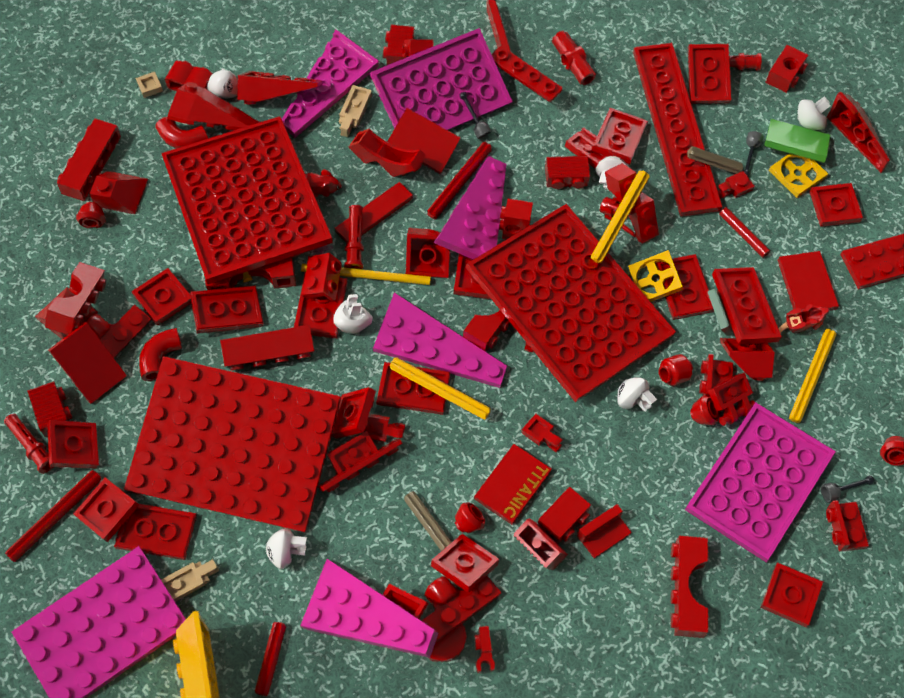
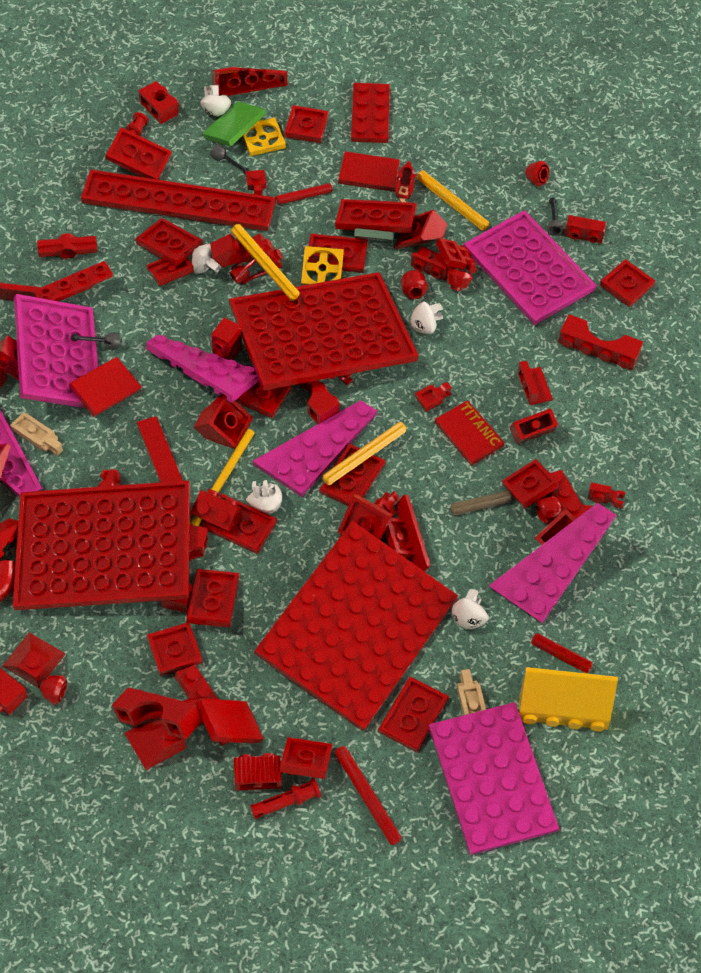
camera: 70 degrees left, 5 degrees down
(106, 509) = (382, 745): red plate -> none
(154, 350) = (232, 667): red cylinder -> none
(267, 346) = (269, 573): red brick -> none
(354, 246) = (194, 475): red pin -> none
(394, 160) = (116, 415): red arch -> none
(459, 180) = (156, 376): red axle -> none
(469, 518) = (491, 470): red cone -> none
(565, 515) = (511, 402): red brick -> none
(567, 172) = (188, 292): red brick -> none
(715, 160) = (229, 184): dark tan axle -> none

